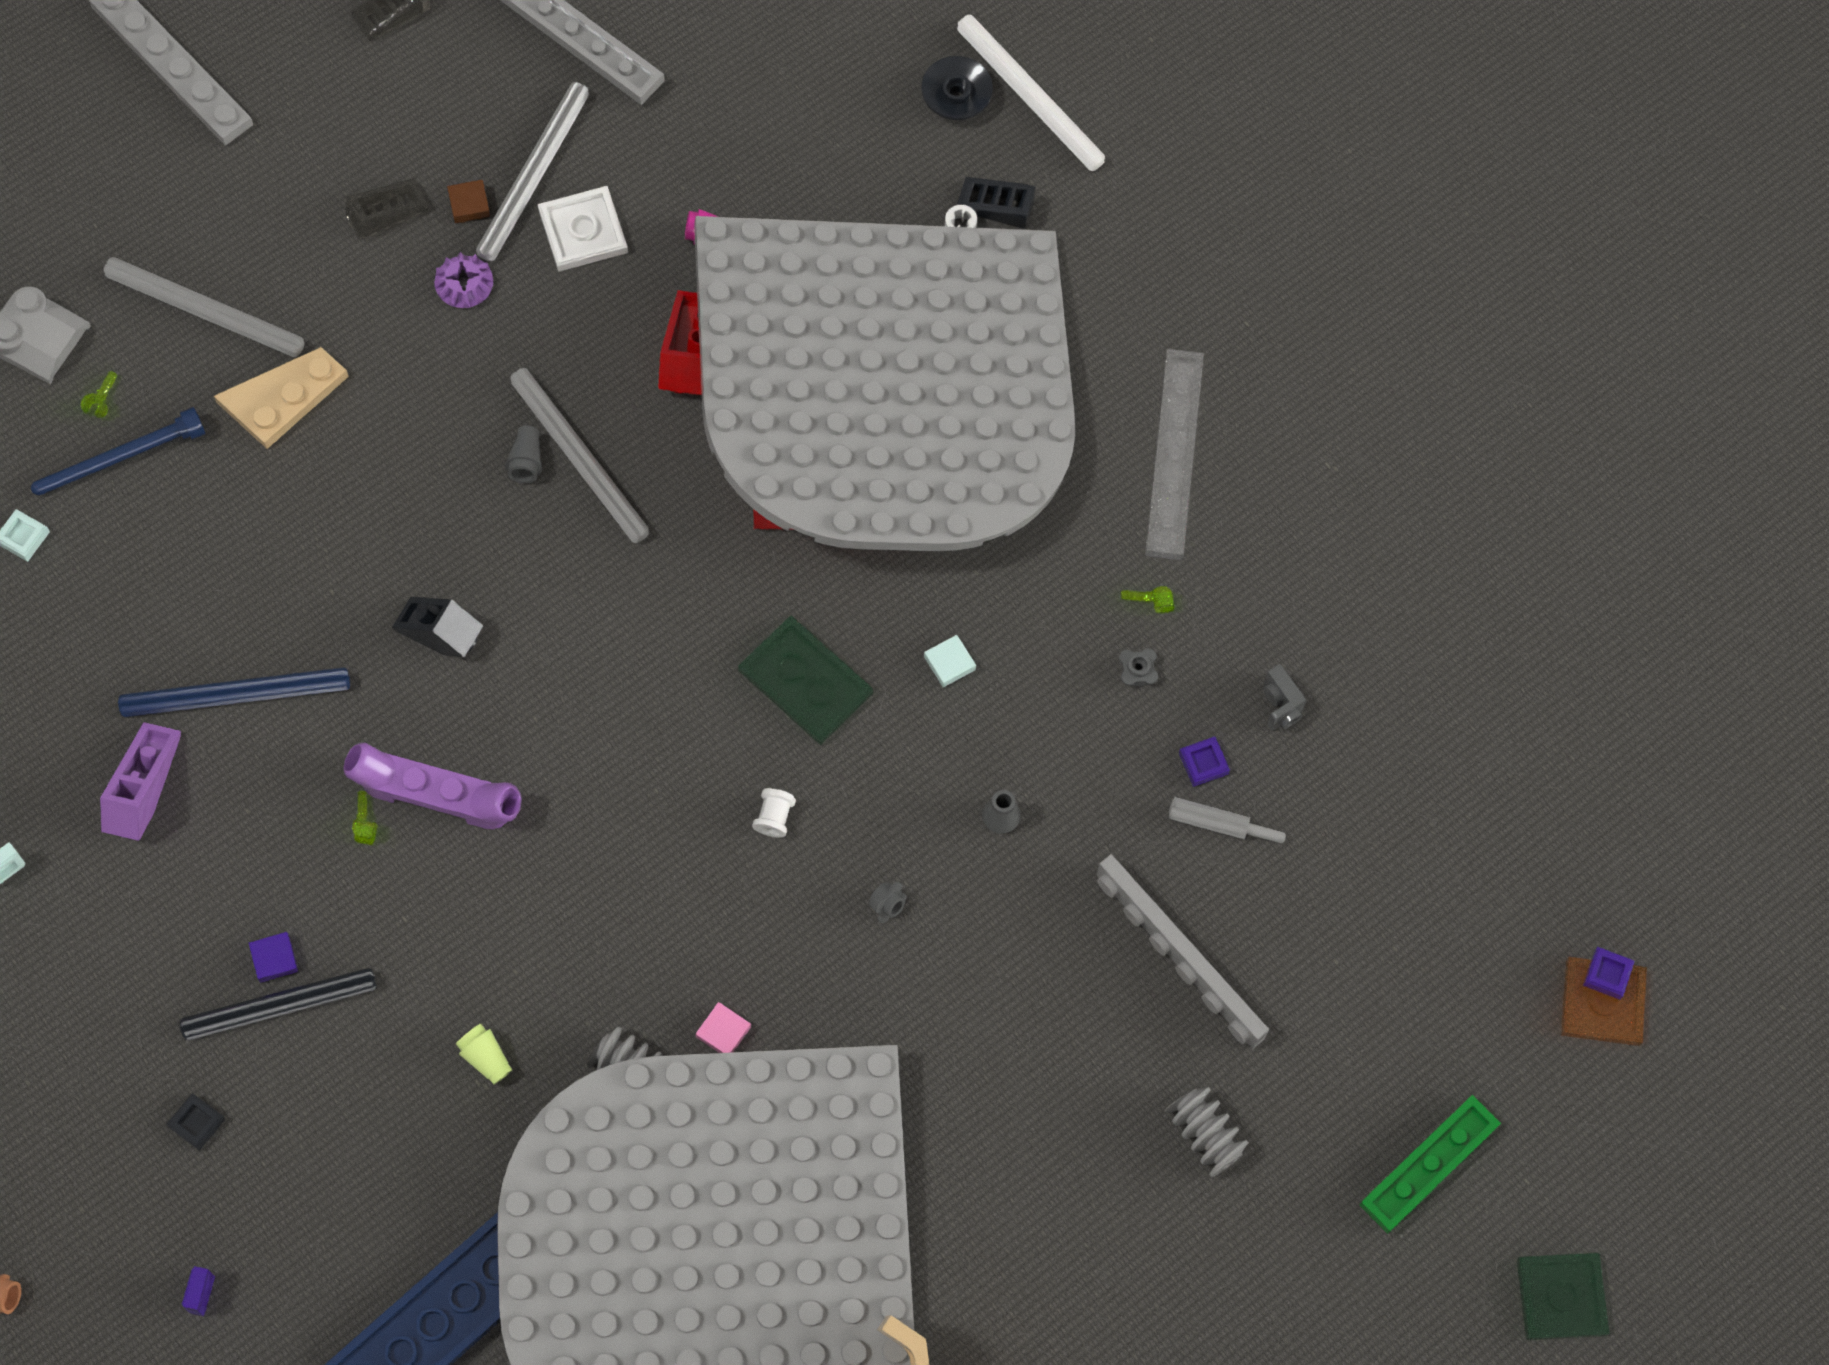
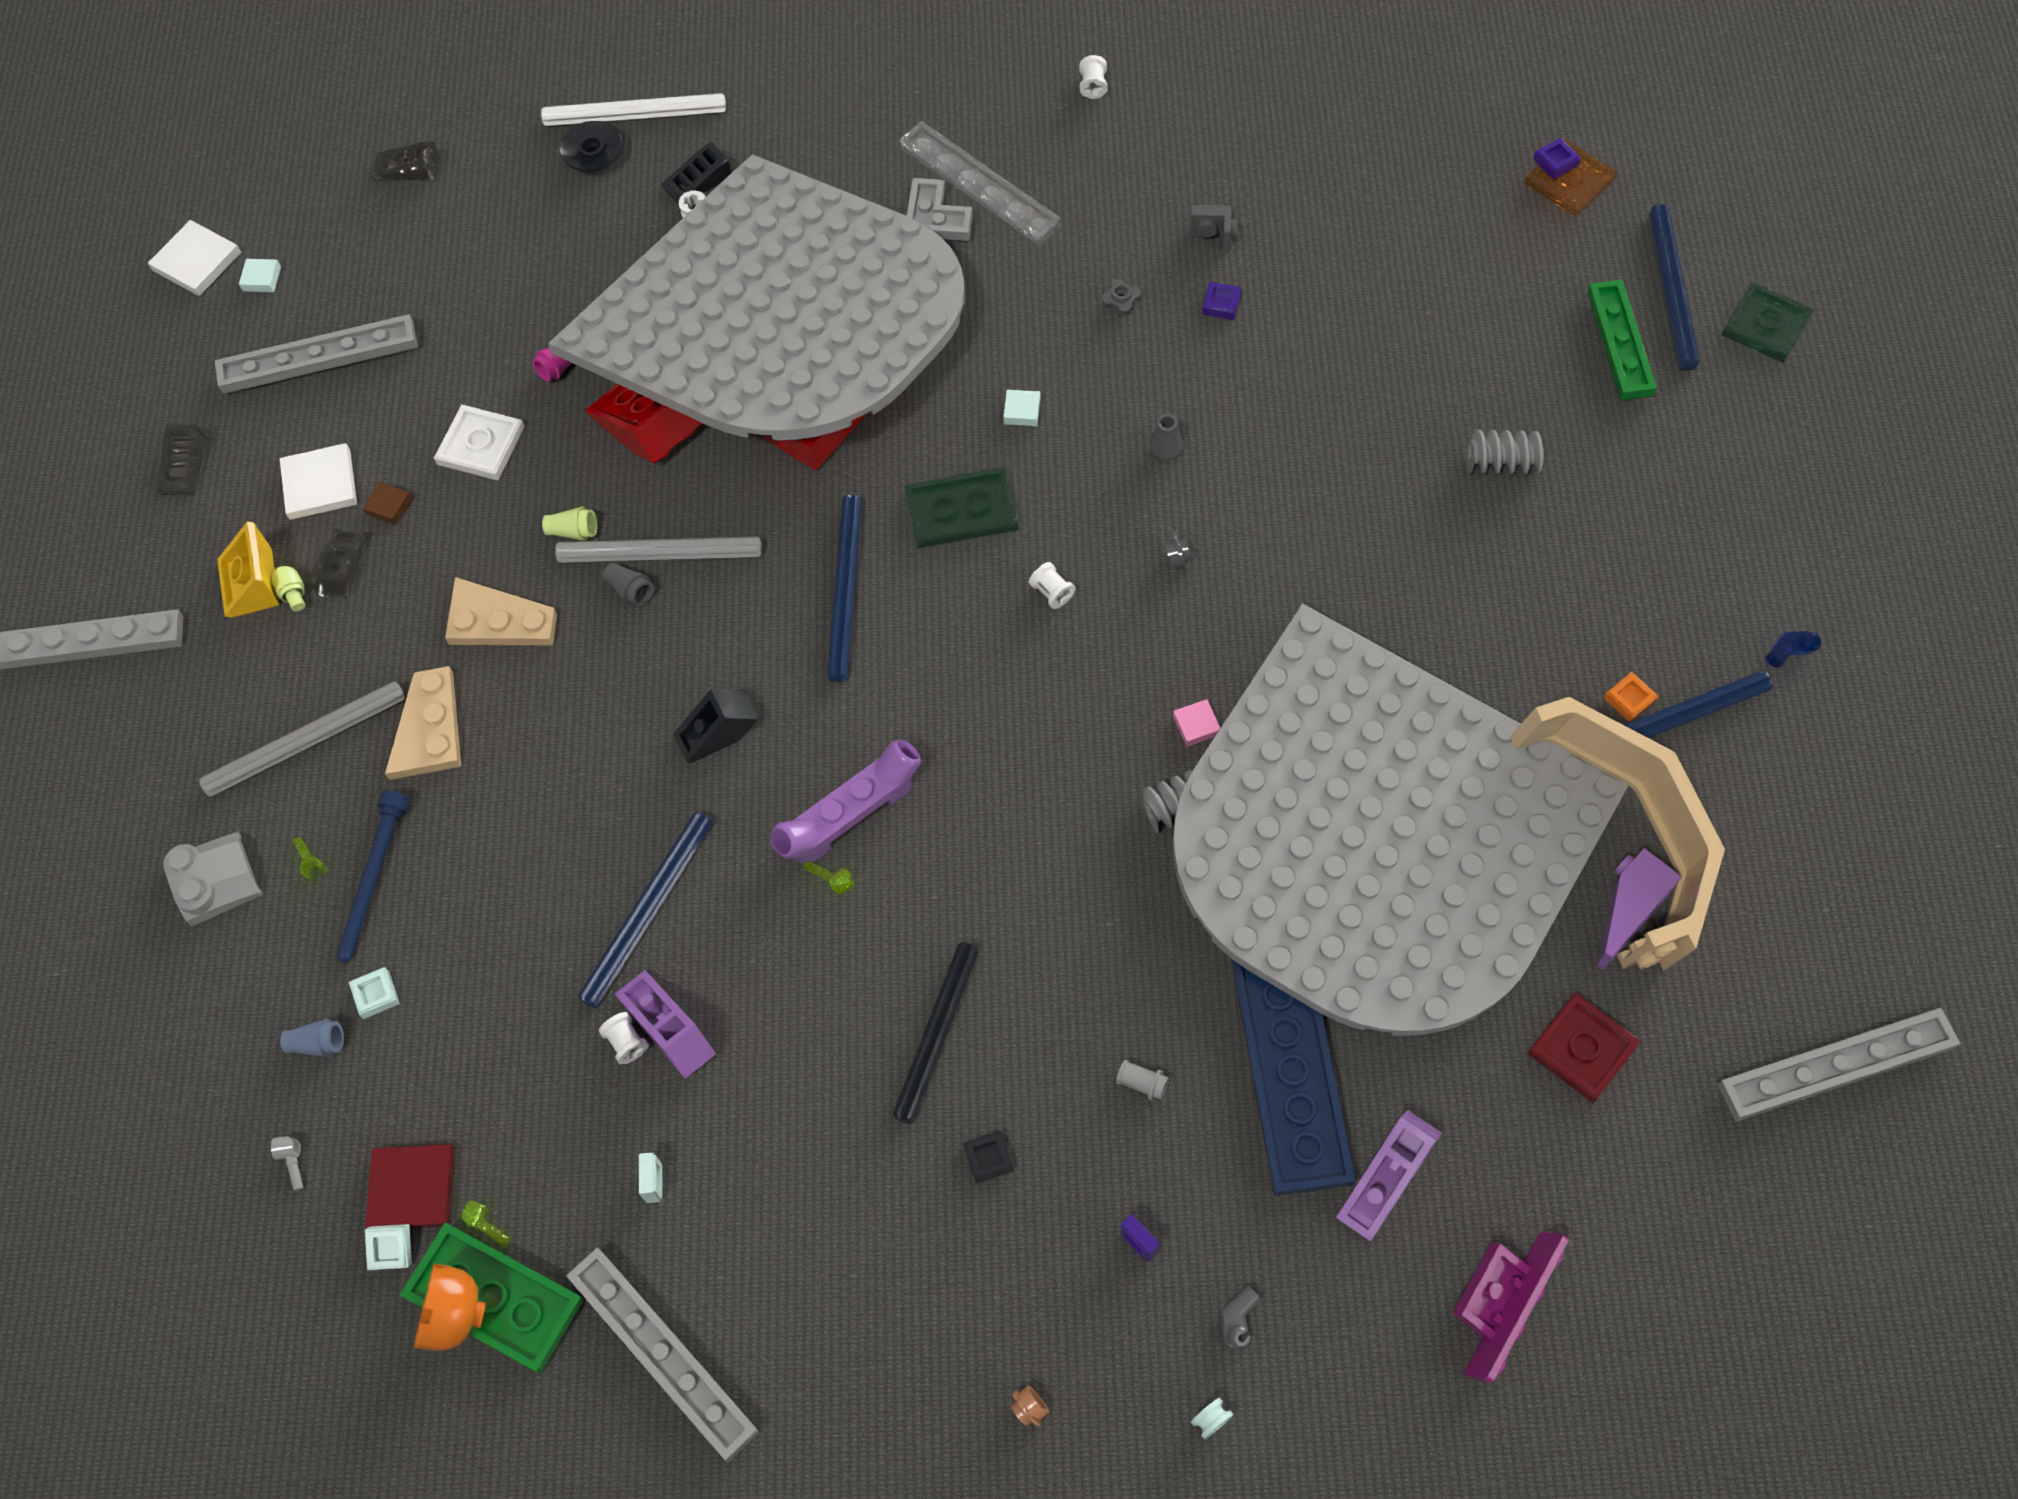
camera: 45 degrees left, 5 degrees down
(106, 757) = (623, 1038): none -> white bush
(273, 957) = (893, 1012): dark purple tile -> none
(322, 146) = (246, 573): none -> yellow slope
(332, 186) = (289, 587): none -> yellowish green cylinder
(344, 1205) = (1143, 1080): none -> light grey pin
(420, 373) = (497, 618): none -> tan wing
(450, 129) = (318, 481): none -> white tile
(477, 287) = (449, 556): medium lavender gear -> none
(484, 1053) = (1093, 900): yellowish green cone -> none
(532, 172) = (404, 448): light grey axle -> none
(552, 367) = (572, 524): none -> yellowish green cone
(650, 637) = (844, 589): none -> dark blue axle
(1100, 438) = (928, 208): none -> light grey plate
(1160, 596) = (1080, 253): clear neon green hand -> none
(1190, 962) = (1357, 392): light grey plate -> none
(1220, 821) = (1273, 316): light grey axle -> none
(1379, 472) = (1093, 71): none -> white bush
(1537, 1179) = (1674, 288): none -> dark blue axle

